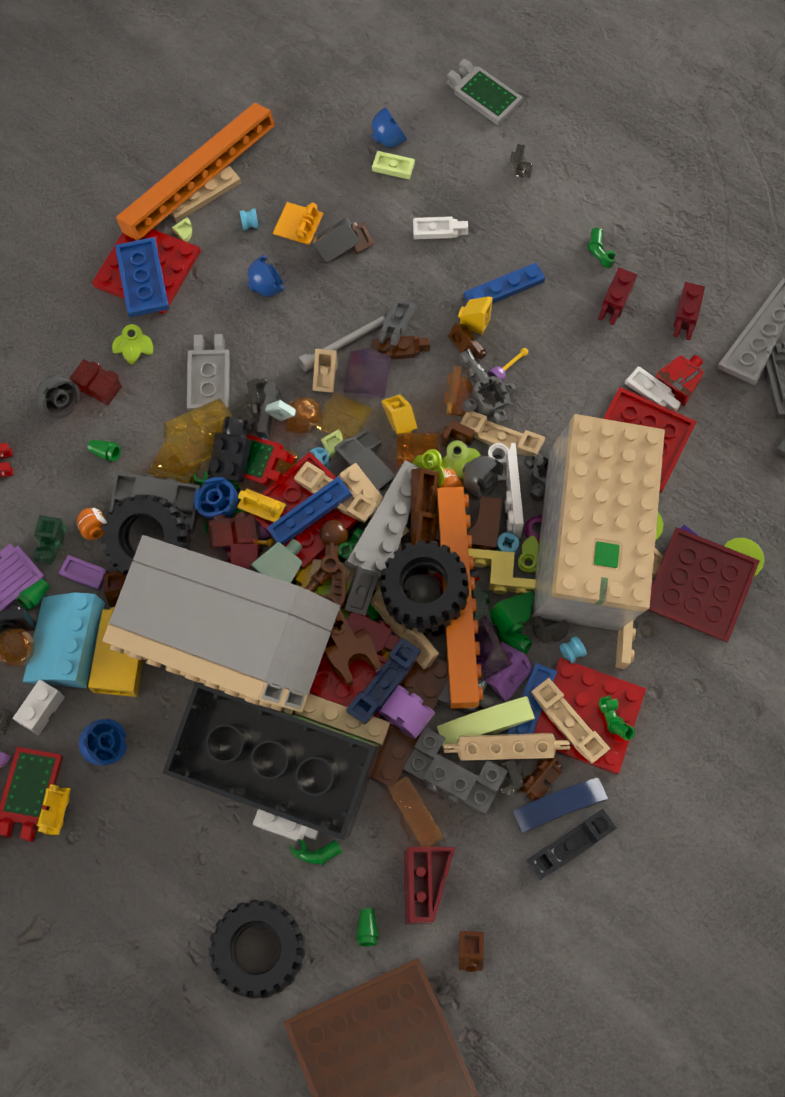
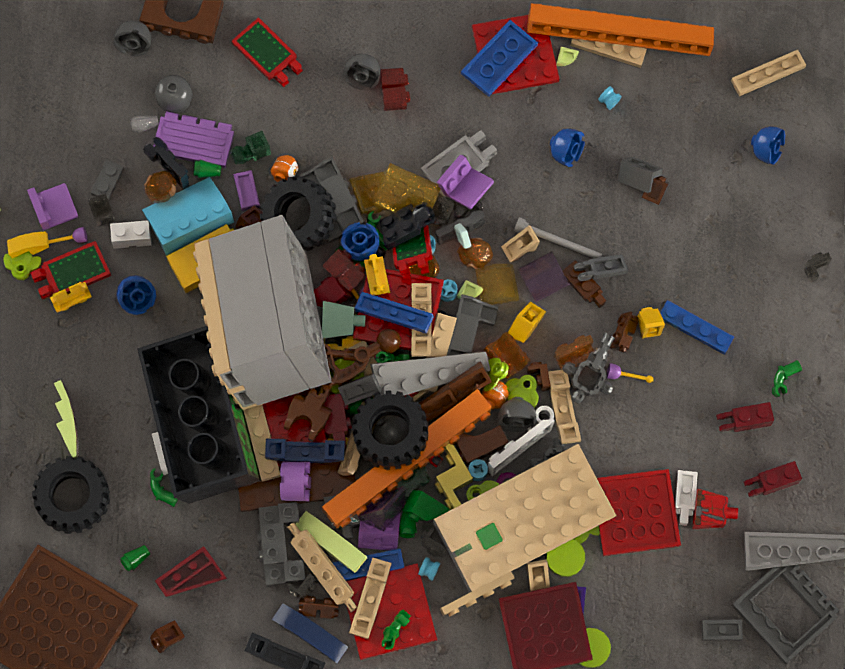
camera: 50 degrees right, 5 degrees up
(104, 449) = (347, 137): green cone -> none
(132, 346) = (441, 92): lime plate -> none
(183, 904) = (68, 426): none -> yellowish green slope
(234, 377) = (464, 183): none -> medium lavender bracket
(298, 222) = (635, 135): light orange hinge -> none
(325, 93) = (768, 72): none -> tan plate
(393, 165) = (741, 170): yellowish green plate -> none
(415, 813) = (234, 537): clear orange plate -> none
(438, 228) = (709, 243): white hinge -> none

